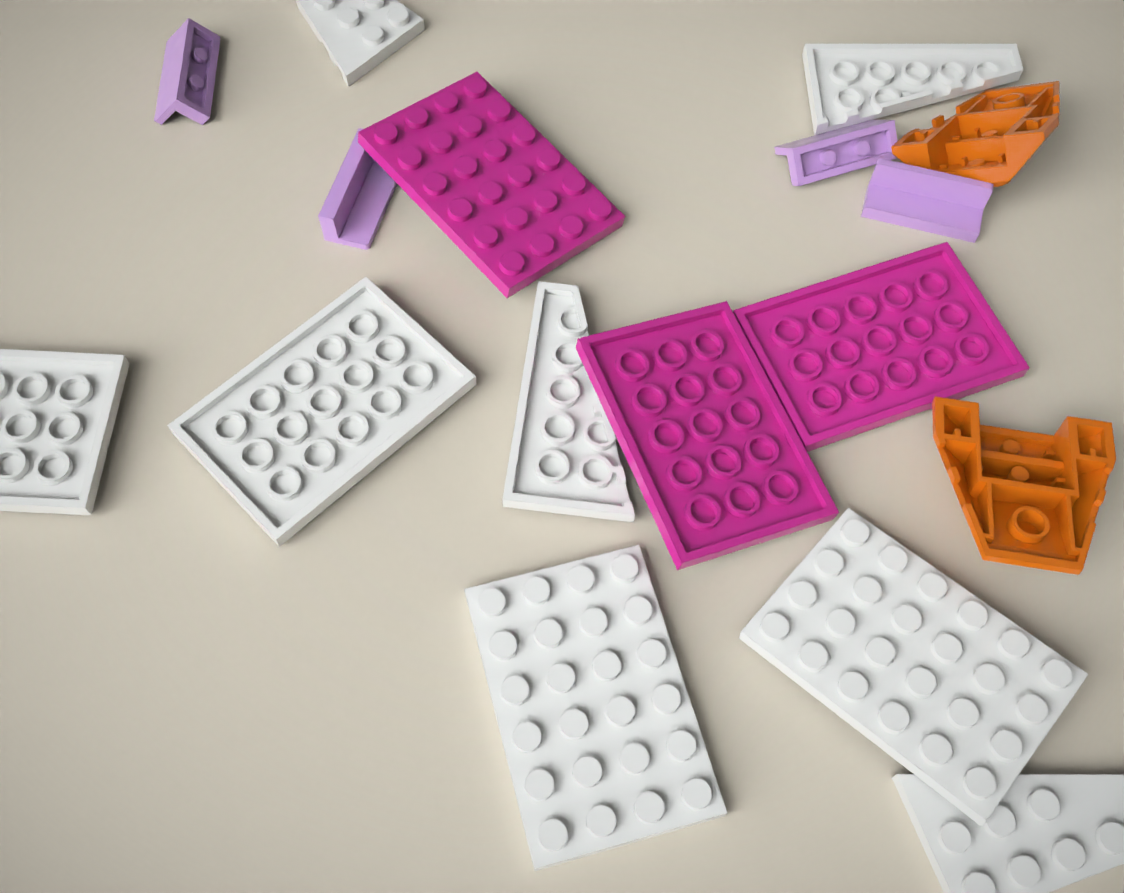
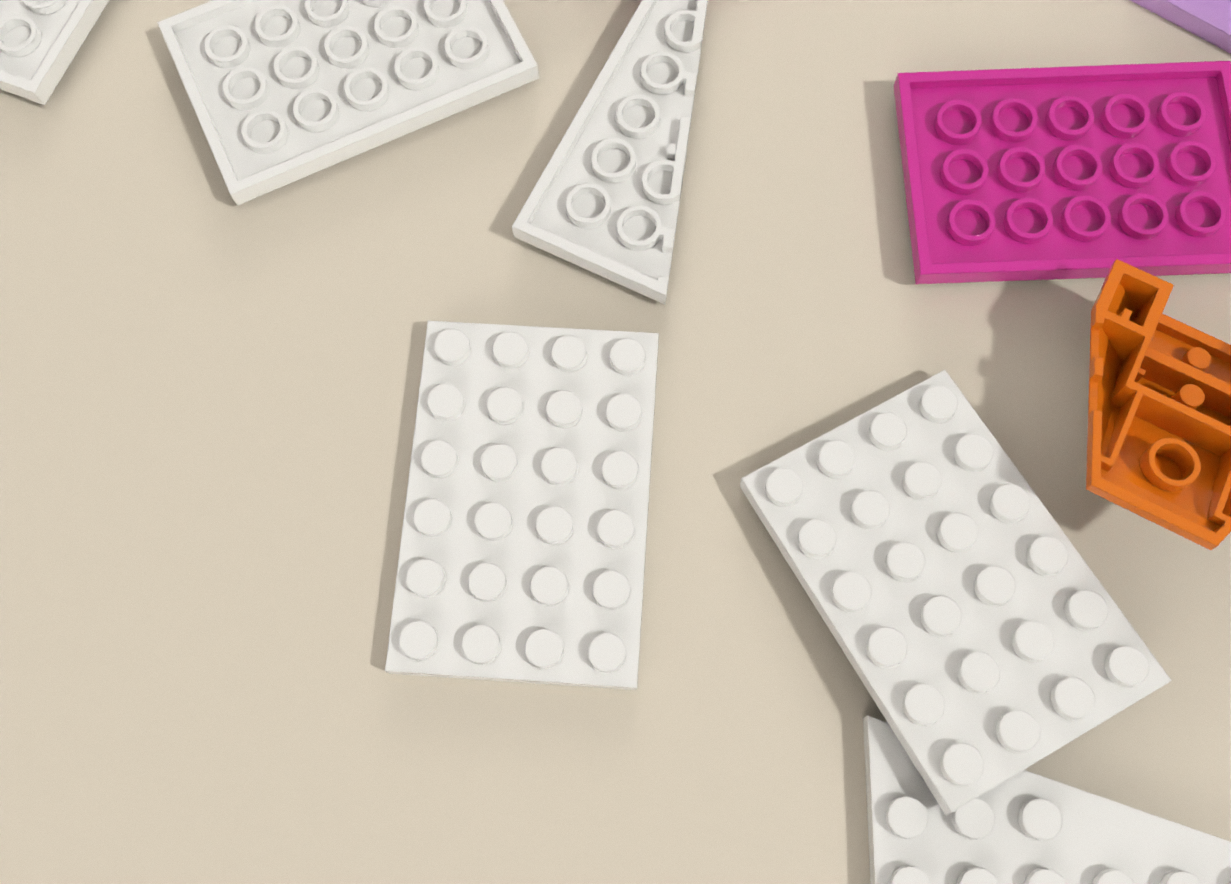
camera: 25 degrees right, 10 degrees up
(704, 433) = (795, 218): dark pink plate -> none

